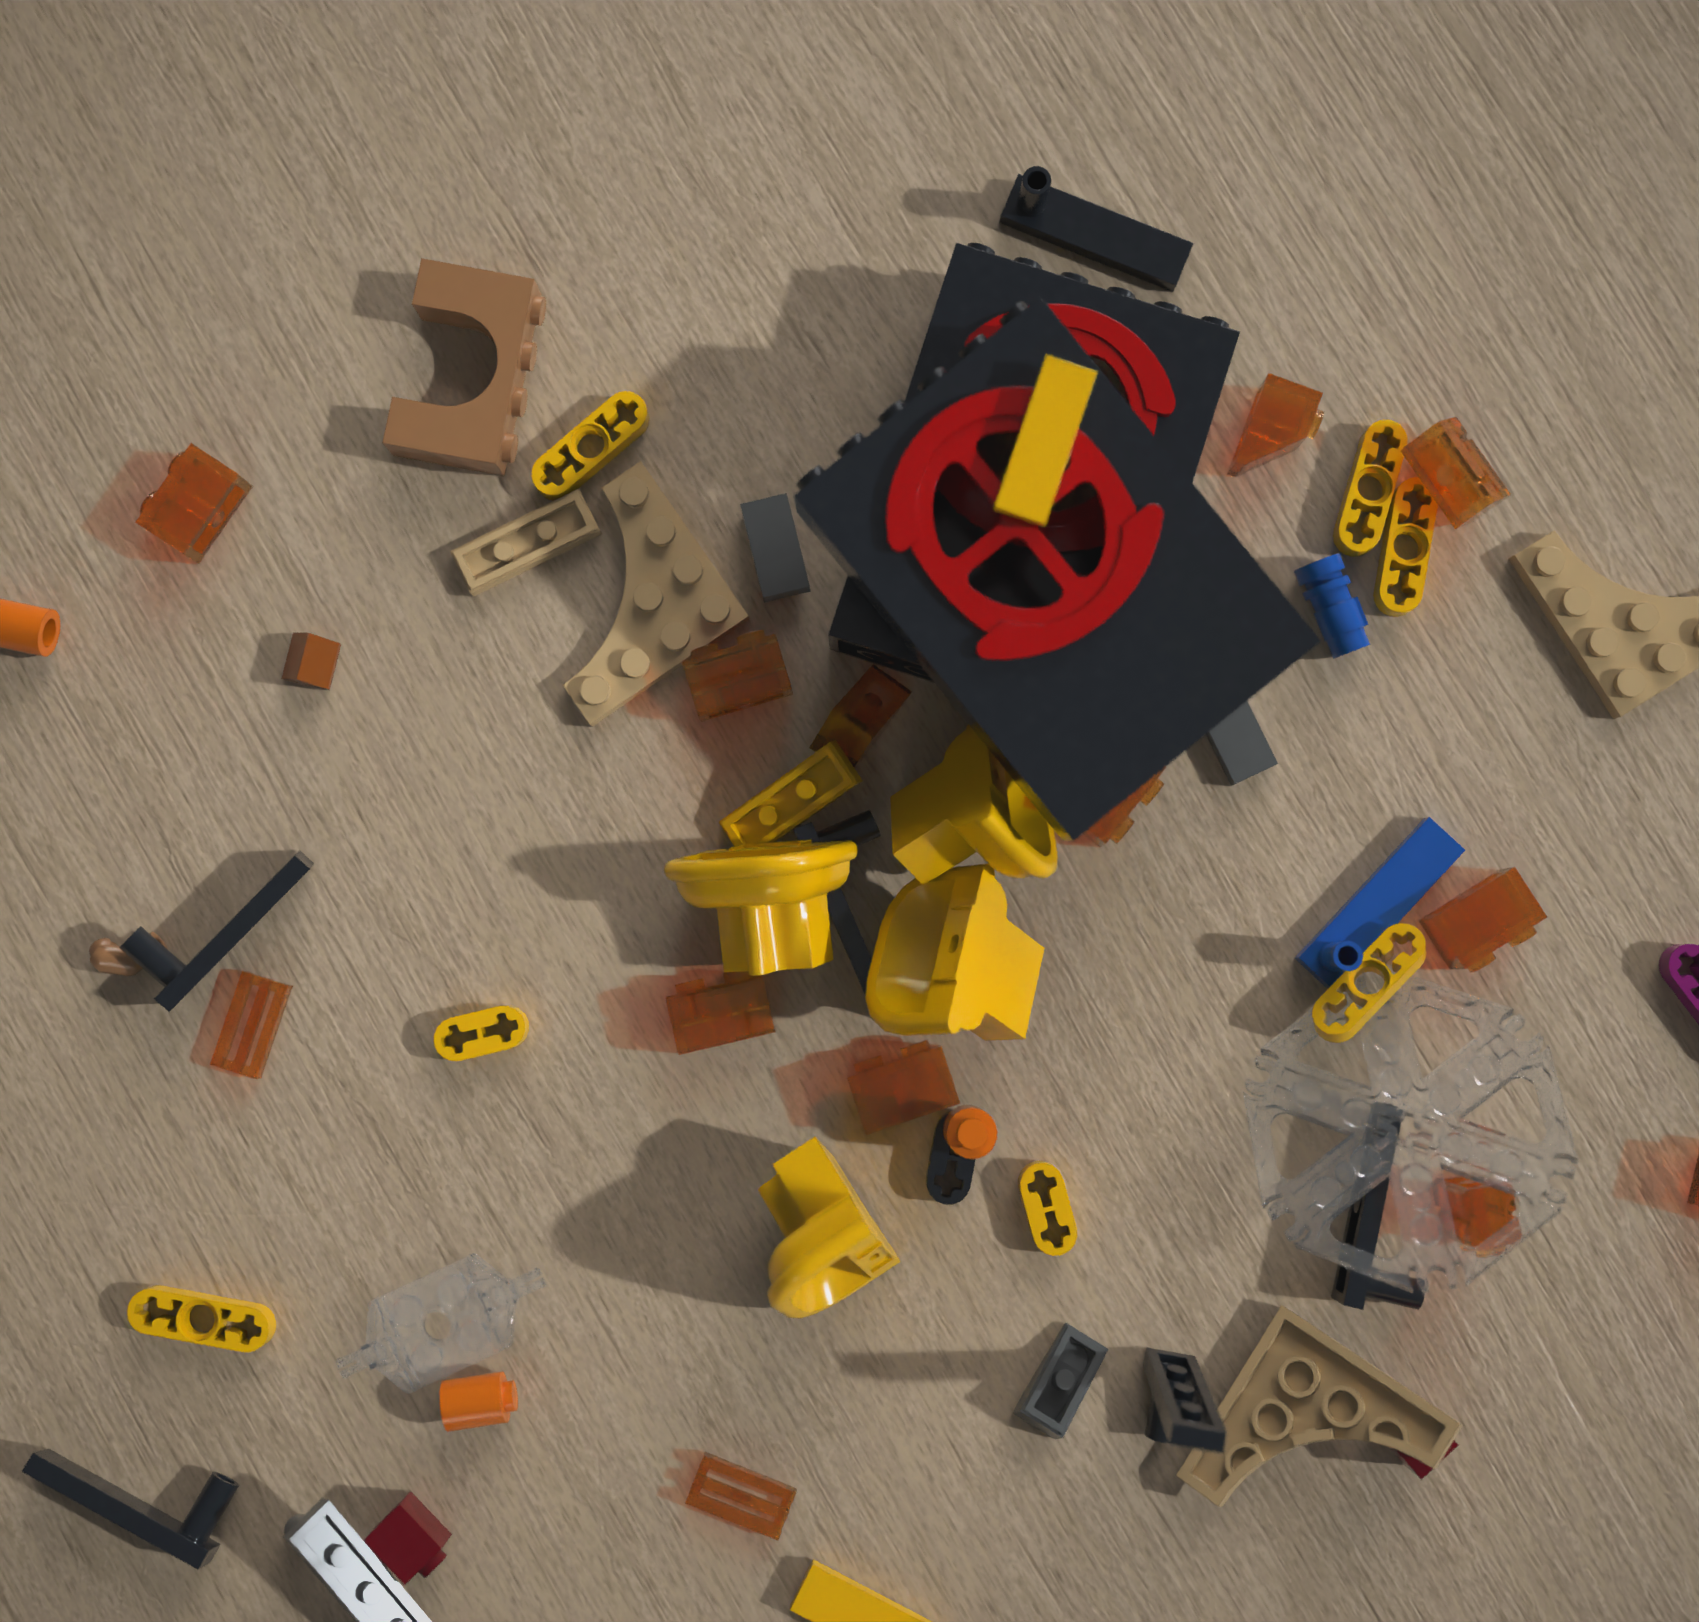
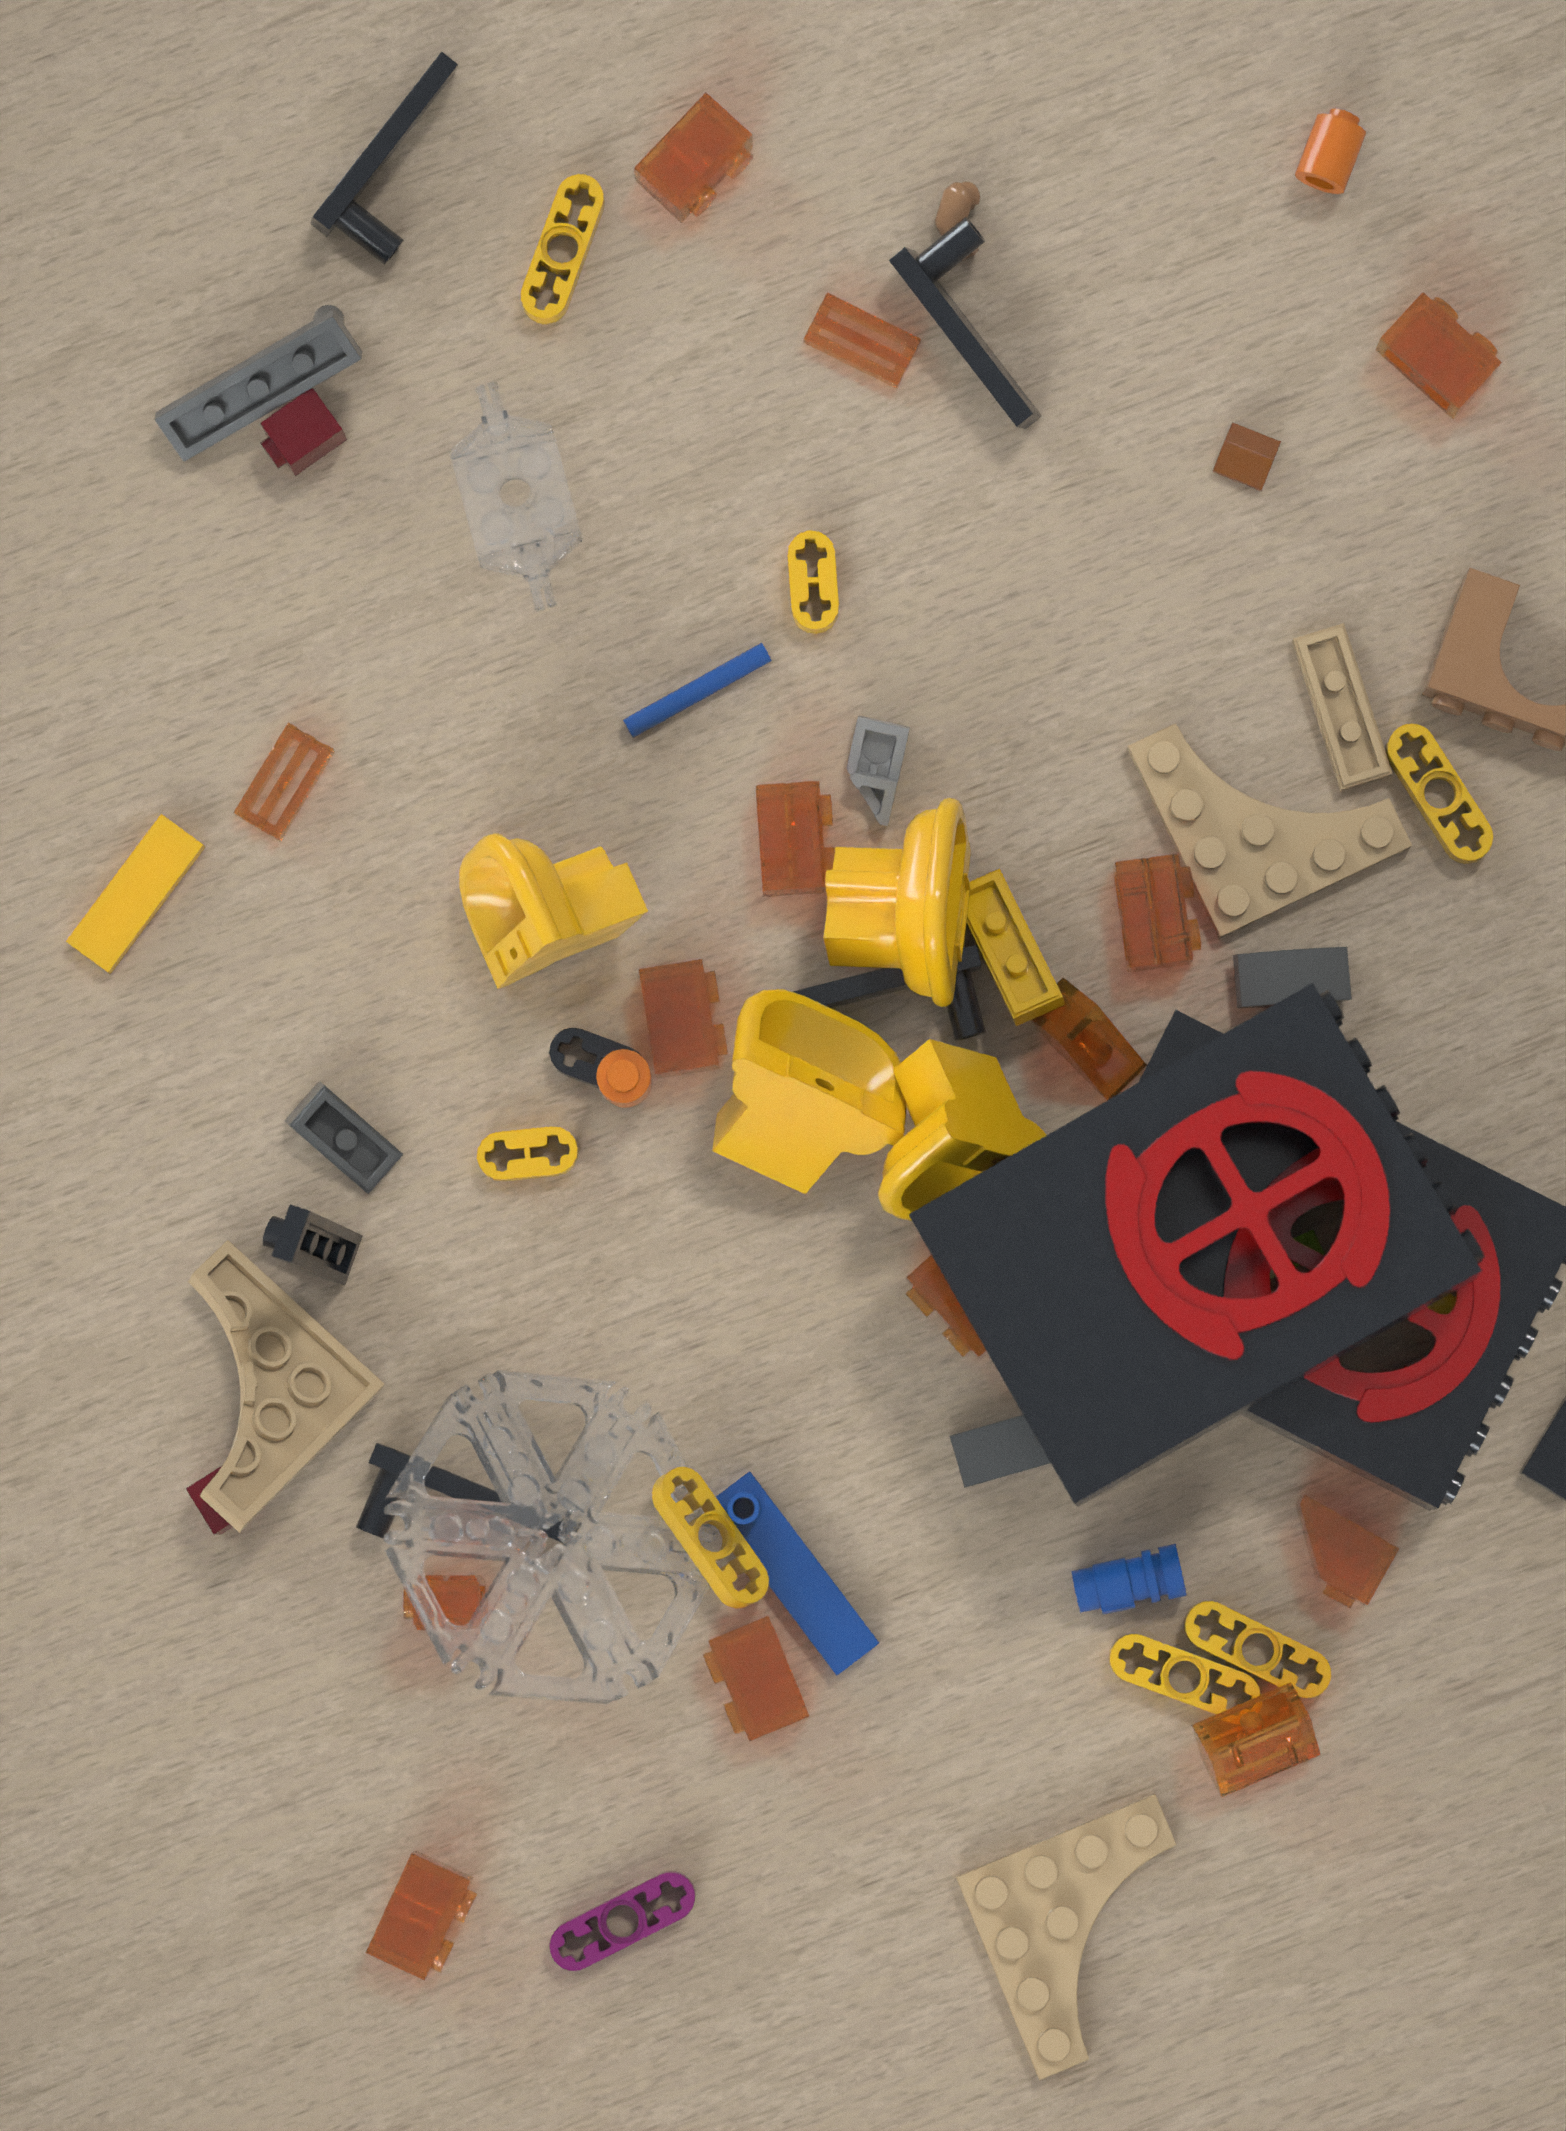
camera: 105 degrees right, 0 degrees up
(98, 1208) = (695, 159): none -> clear orange brick
(477, 1401) = (430, 522): orange brick -> none
(597, 1123) = (697, 690): none -> blue bar
(639, 947) = (877, 763): none -> light grey slope
(1045, 440) = (1324, 1246): yellow tile -> none

